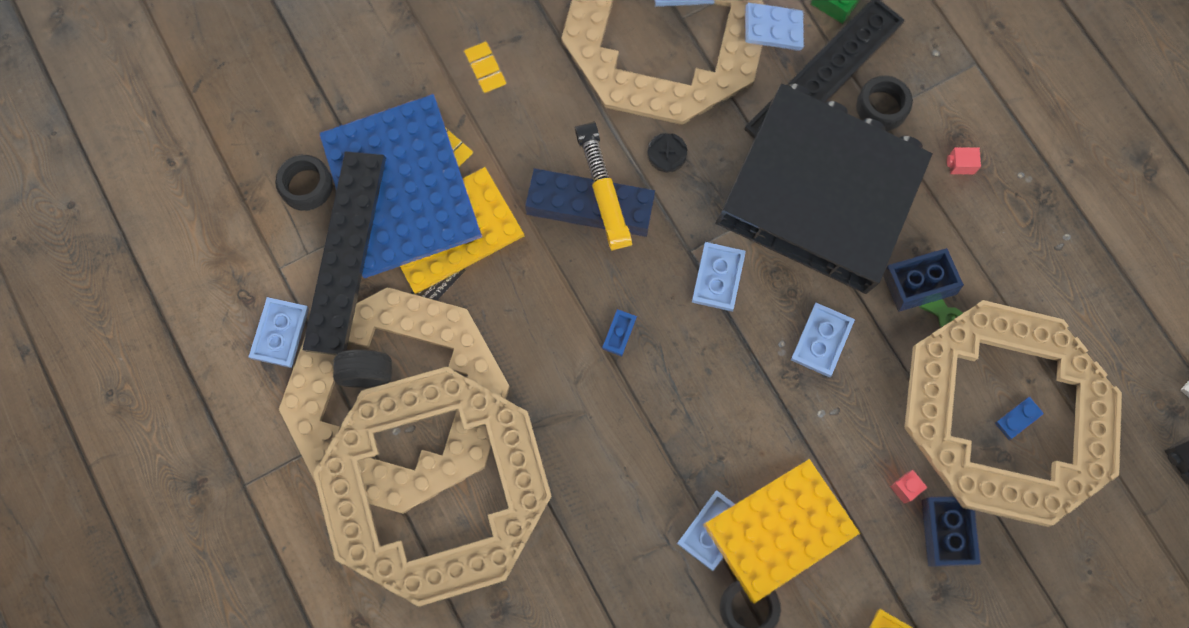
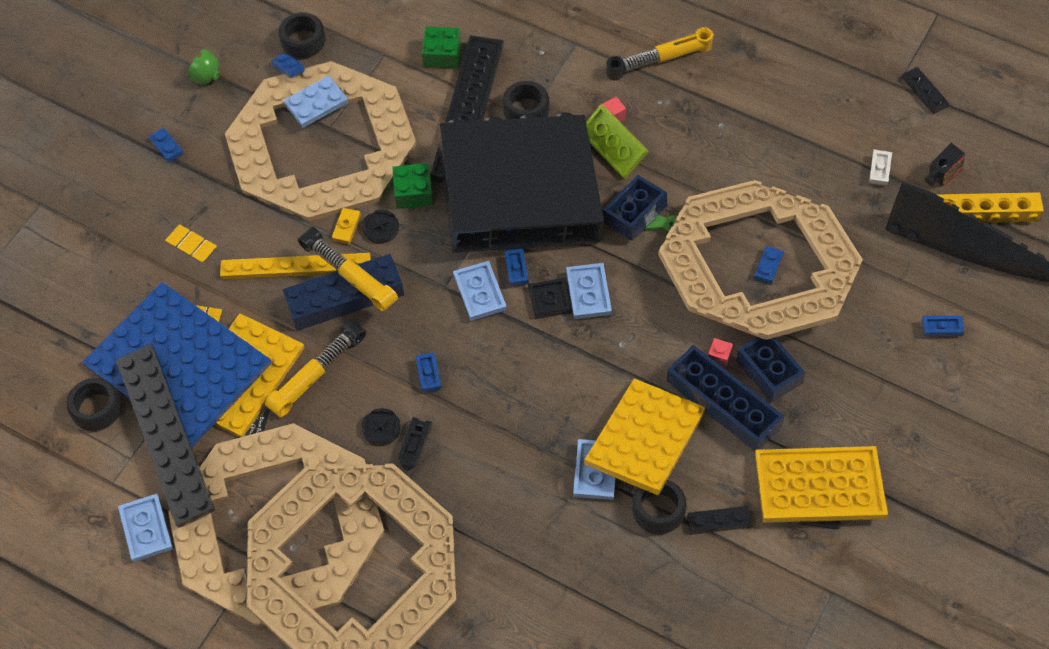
camera: 30 degrees left, 15 degrees down
(362, 368) = (237, 505): black tyre -> none
(469, 280) = (281, 400): none -> piece
(544, 361) = (381, 427): none -> black tile
(557, 143) = (282, 266): none -> yellow plate
(563, 397) = (414, 443): none -> black plate
(635, 133) = (346, 226): none -> yellow plate
(721, 128) = (412, 186): none -> green brick
(768, 273) = (516, 267): none -> blue plate
(774, 26) = (406, 94): light blue plate -> none
(781, 324) = (549, 298): none -> black tile
(884, 538) = (725, 398): none -> dark blue brick
(947, 195) = (614, 141): none -> lime tile
(1056, 123) = (696, 42): none -> piece
(1156, 594) = (942, 326): none -> blue plate

